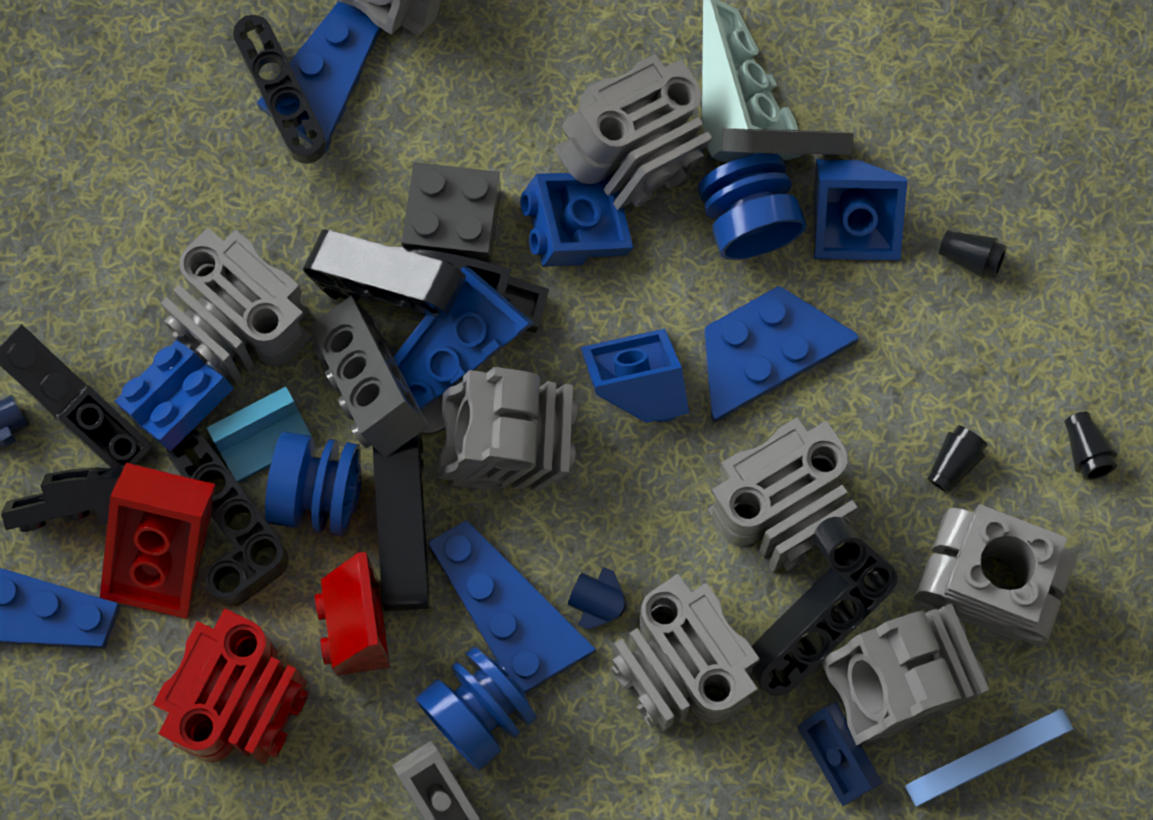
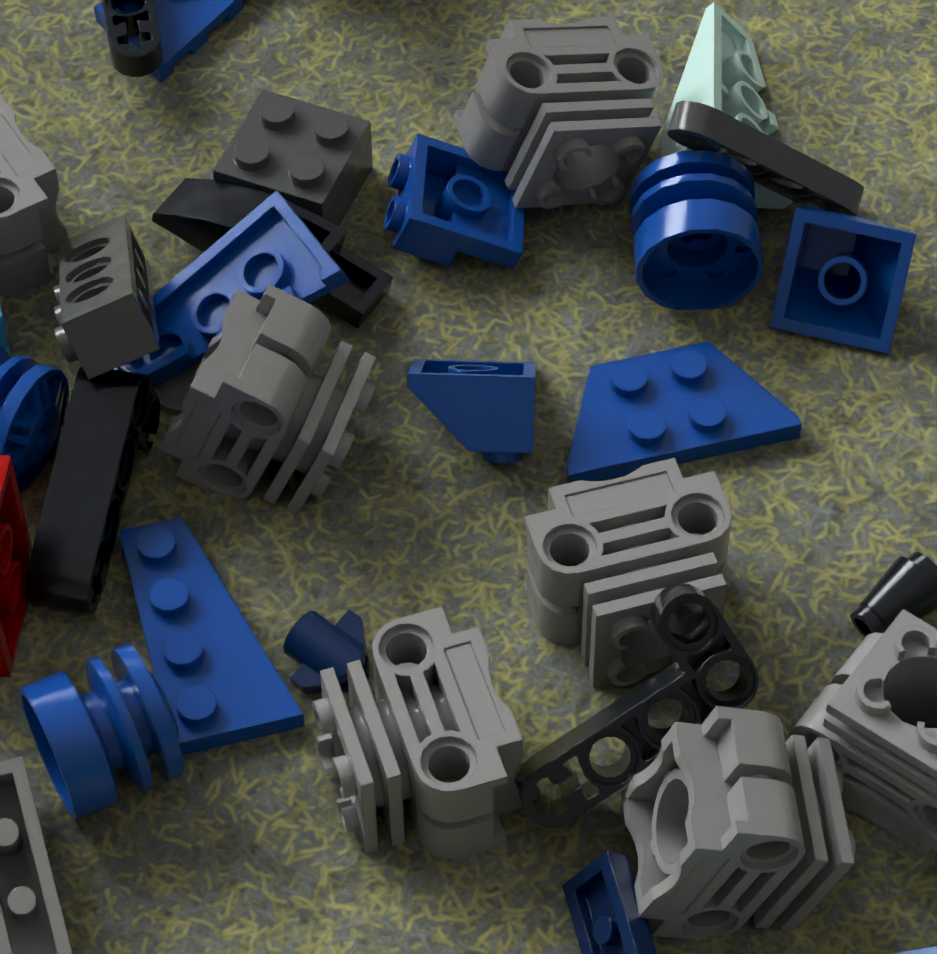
camera: 15 degrees right, 20 degrees down
(359, 268) = (170, 183): beam -> none

